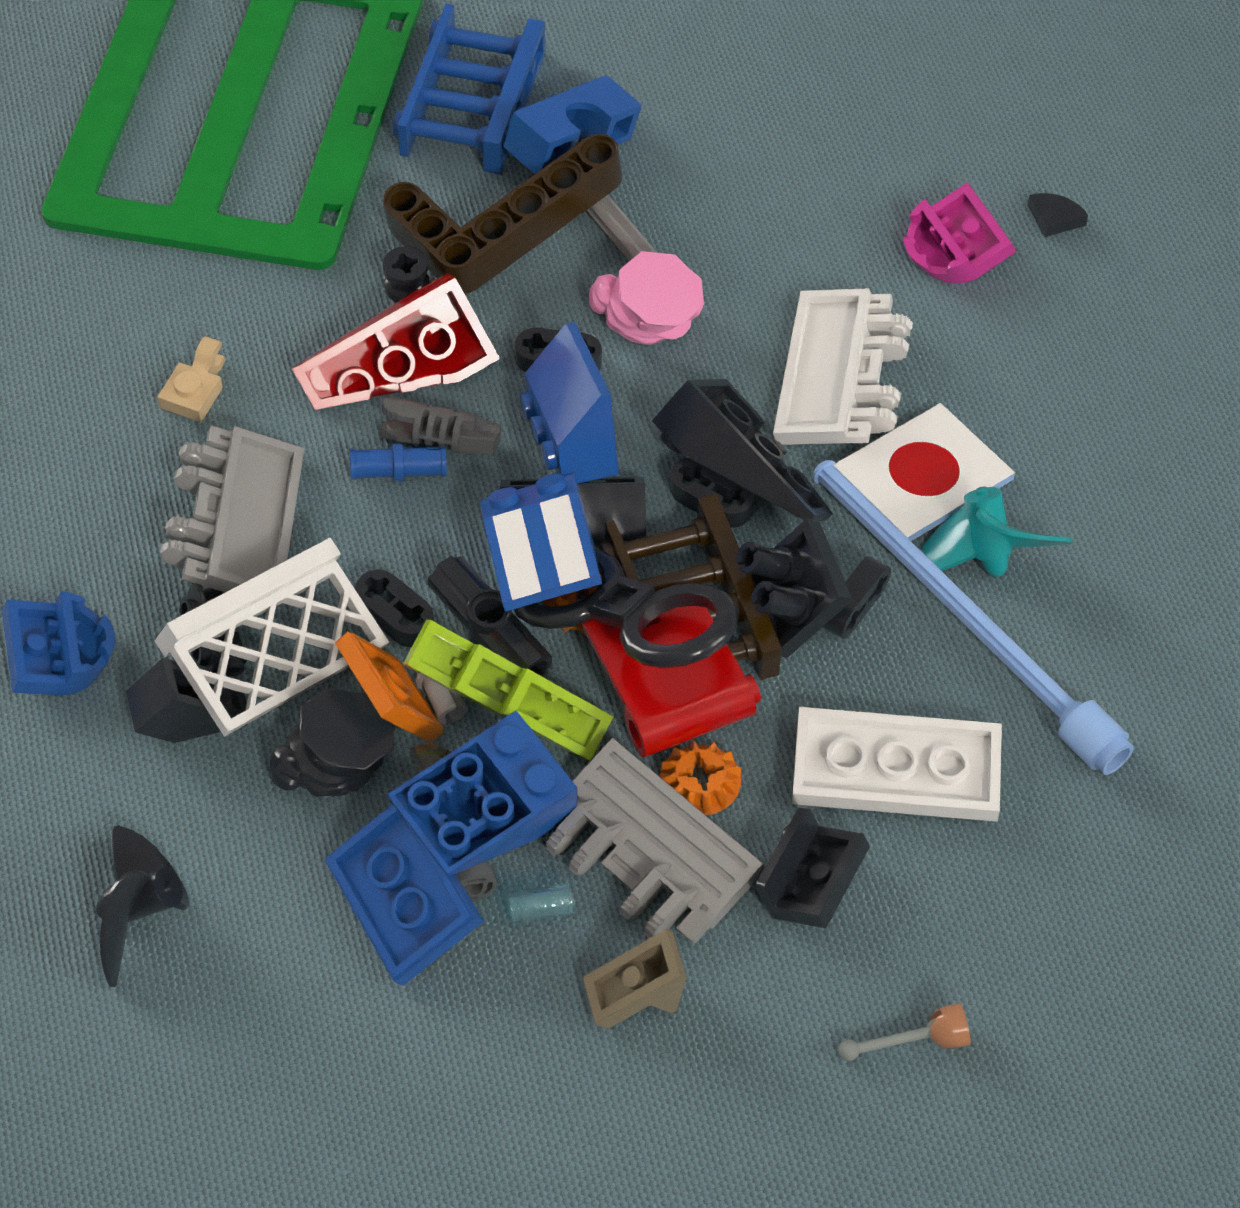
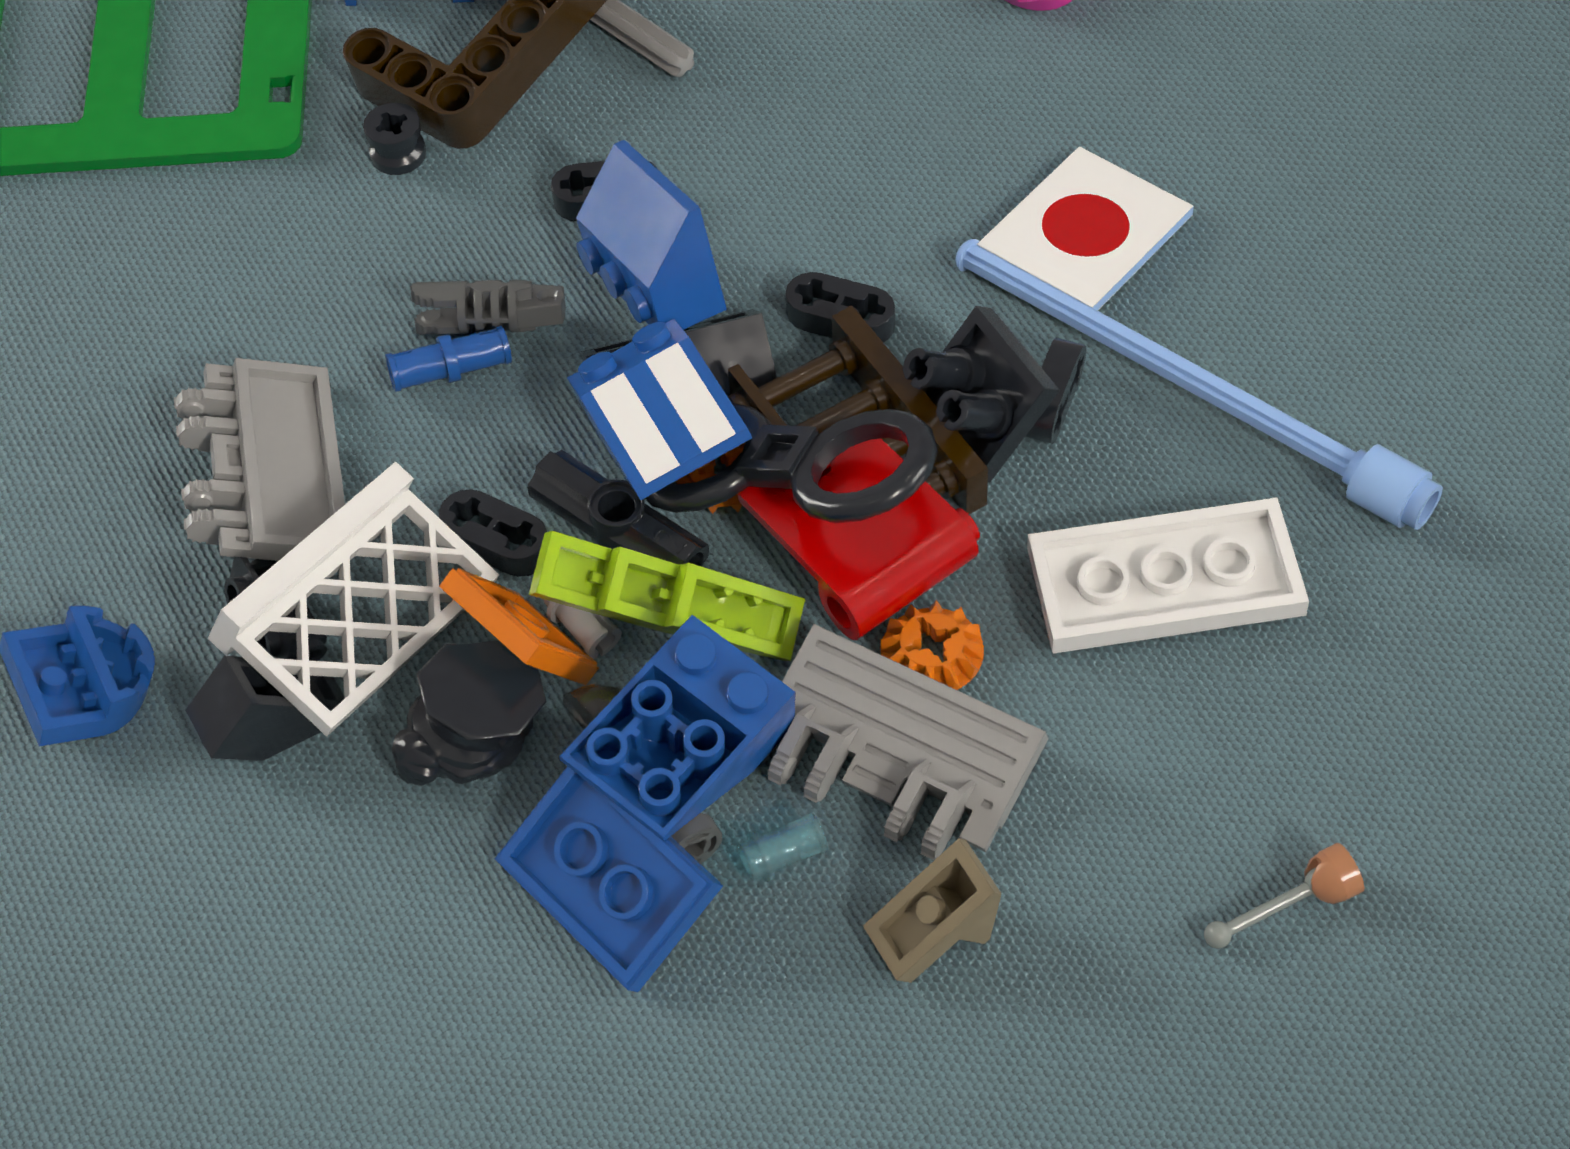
camera: 10 degrees left, 0 degrees up
(142, 888) = (274, 950): black piece -> none
(195, 387) = (170, 328): tan plate -> none
(409, 346) = (422, 218): wedge -> none
(649, 298) = (699, 101): bright pink piece -> none
(722, 432) = (832, 236): black wedge -> none
(810, 870) = (1104, 728): black bracket -> none
(836, 367) = (946, 133): white hinge -> none
(982, 533) = (1183, 280): teal piece -> none

